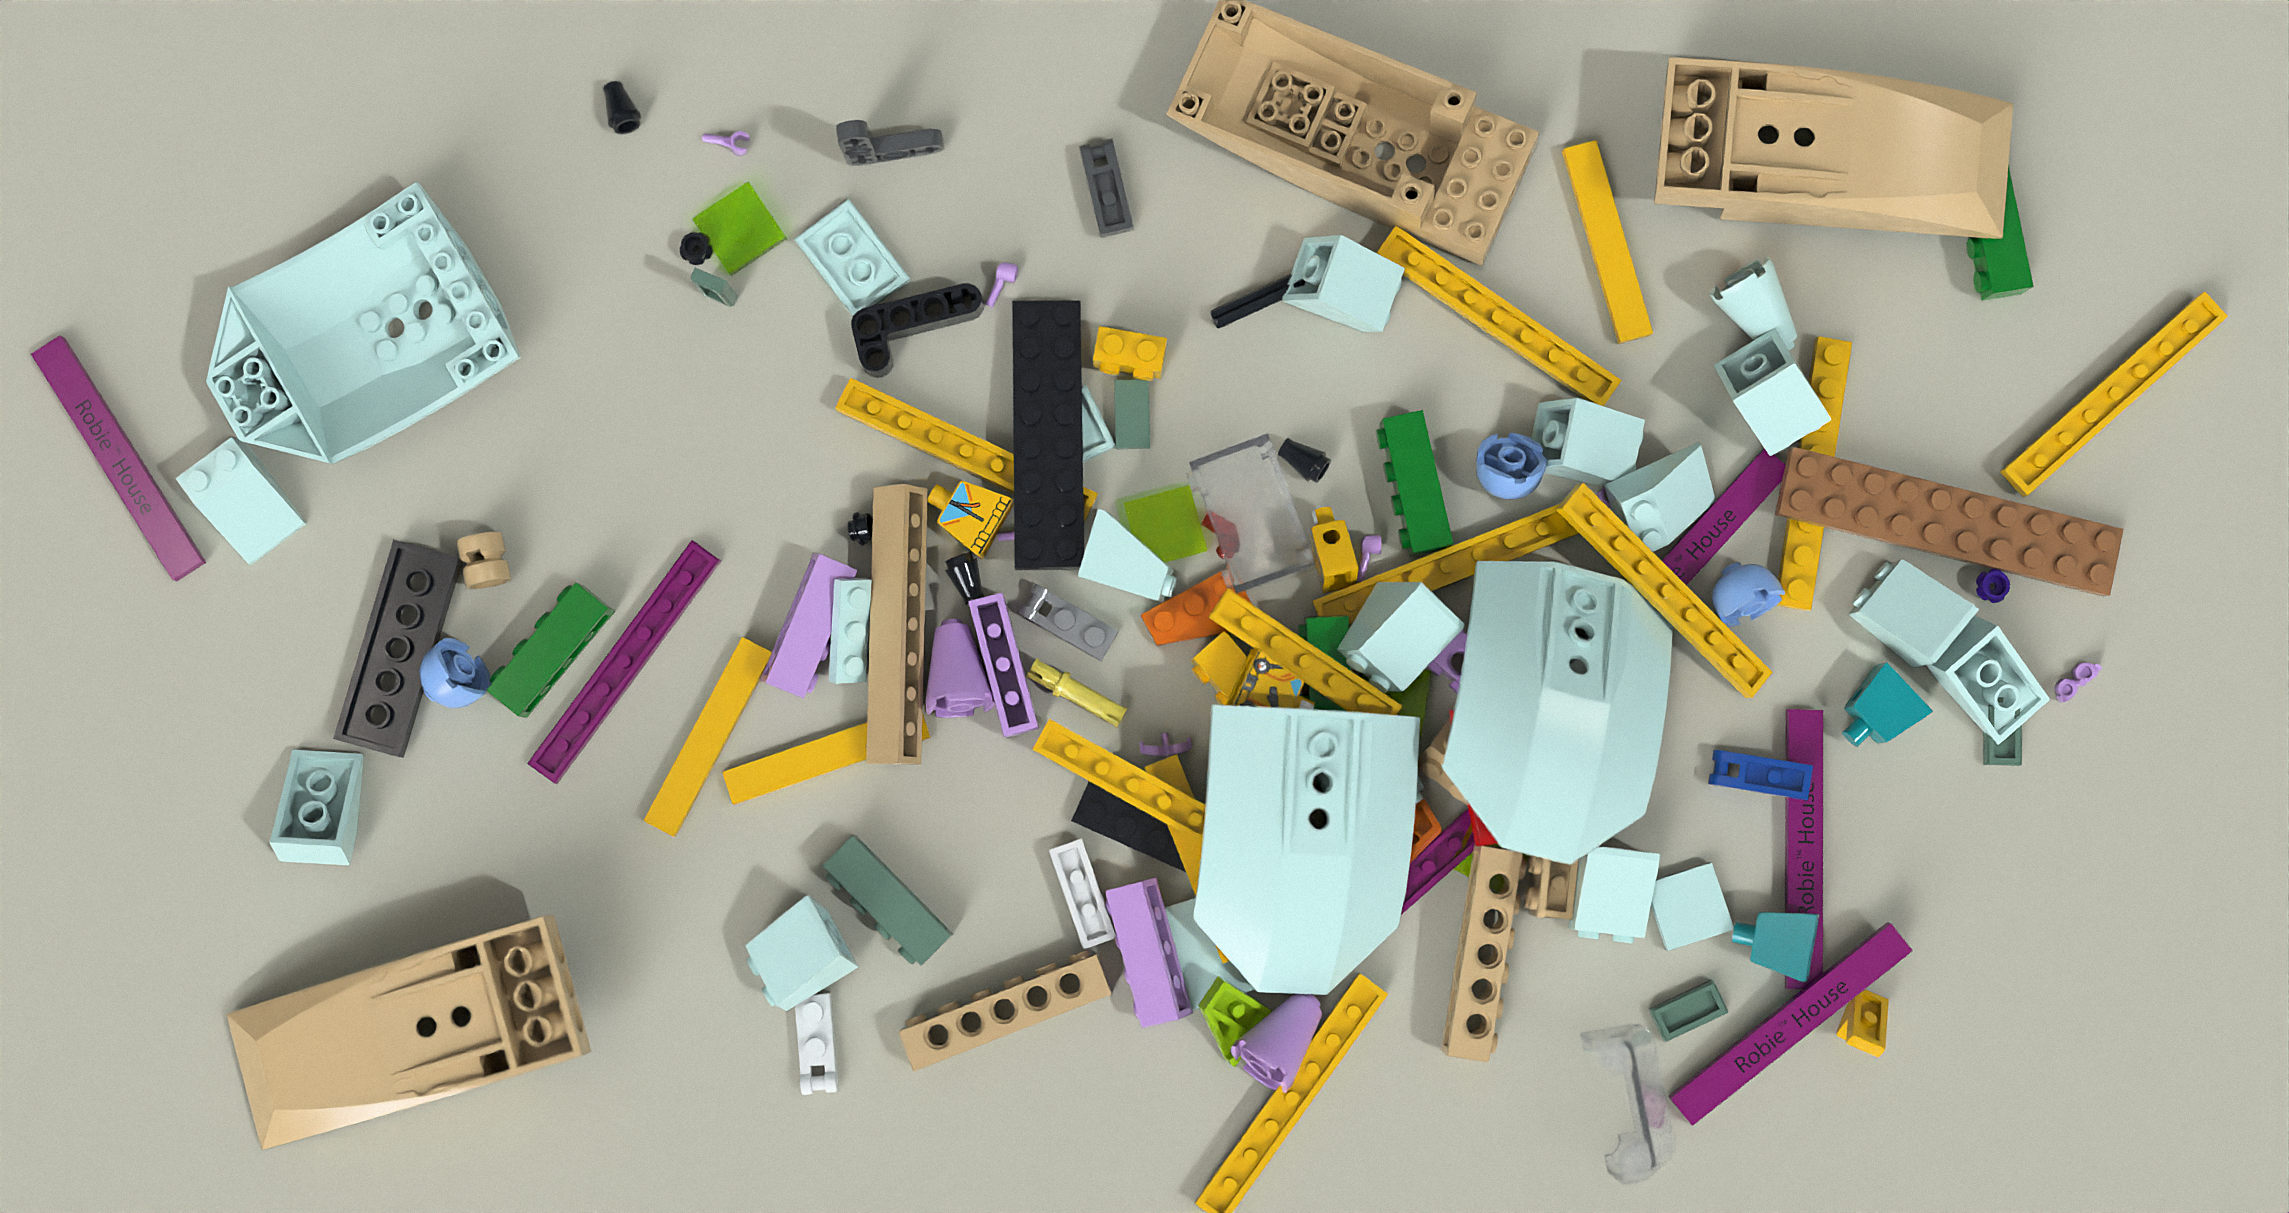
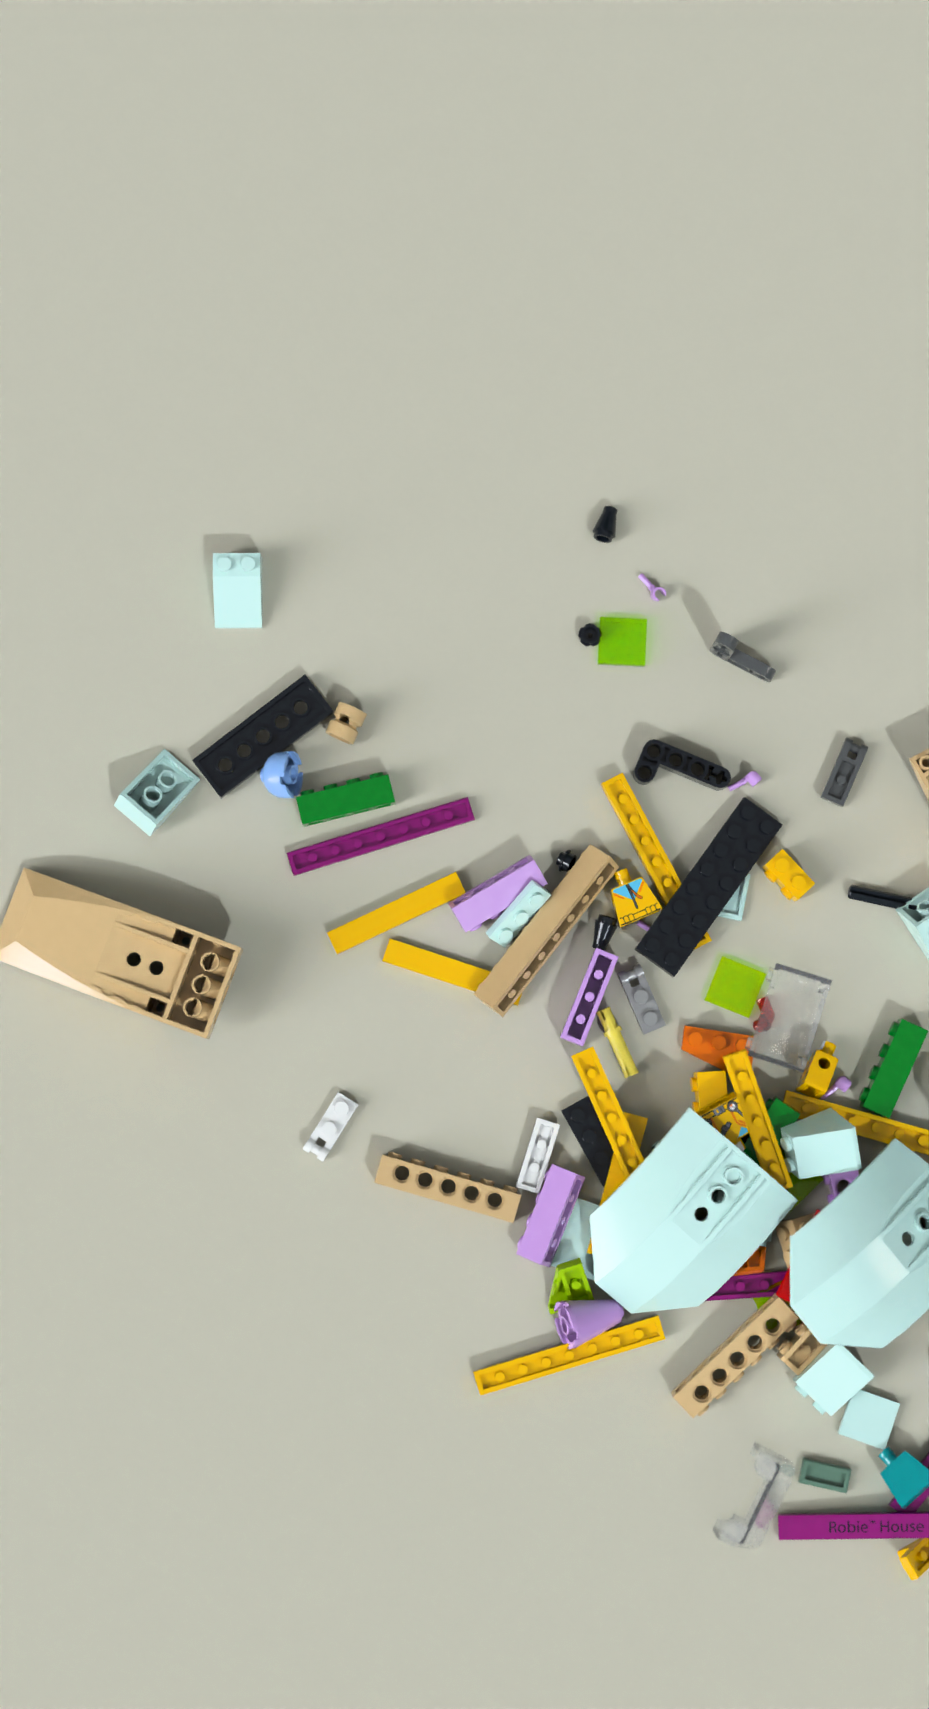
camera: 35 degrees right, 0 degrees up
(118, 458) = (186, 515): magenta tile -> none
(309, 347) = (334, 540): light aqua wedge -> none
(714, 287) = (584, 666): sand green tile -> none
(799, 954) = (358, 1071): light aqua slope -> none
(852, 258) = (672, 706): light aqua tile -> none
(887, 900) = (428, 1078): sand green brick -> none
(956, 673) = (559, 982): lavender cone -> none
(1124, 561) = (698, 990): light aqua slope -> none
(1132, 414) = (763, 910): sand green tile -> none
(1165, 749) = (643, 1110): lavender piece -> none
(1305, 460) = (841, 1008): black cone -> none

